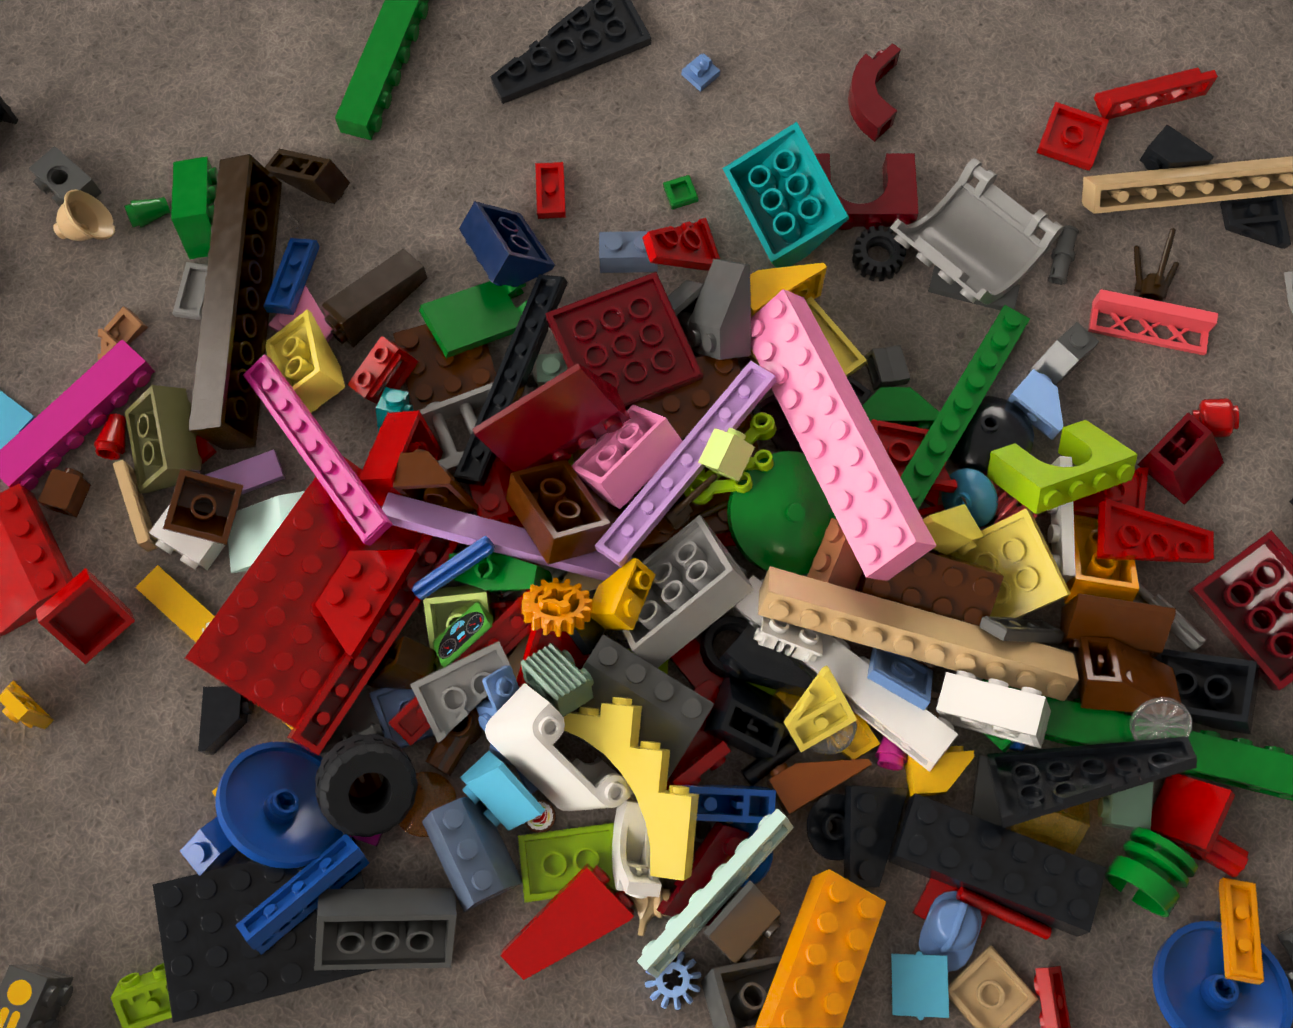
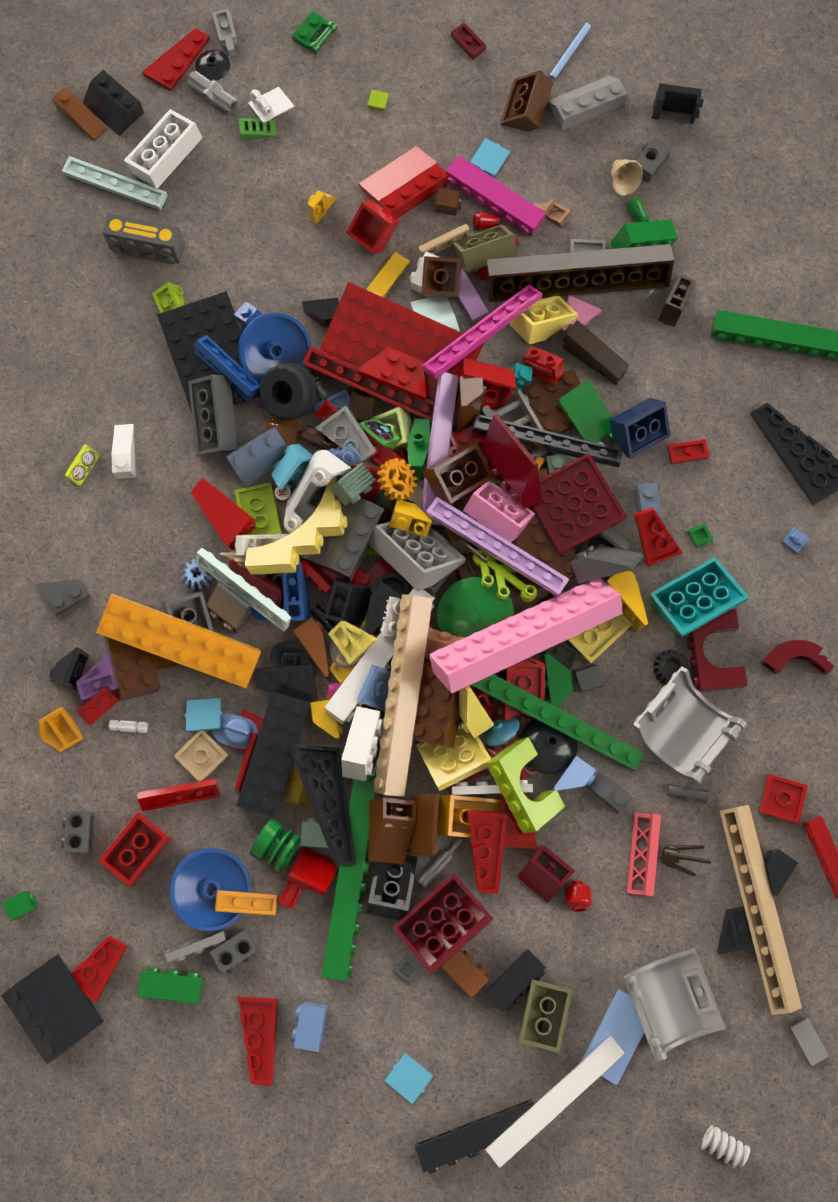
camera: 85 degrees right, 5 degrees up
(291, 276) = (604, 303): blue tile -> none
(453, 567) = (416, 419): blue axle -> none
(727, 453) = (501, 567): yellowish green brick -> none
(1021, 629) = (415, 763): dark grey tile -> none
(1160, 720) = (364, 847): clear wheel -> none

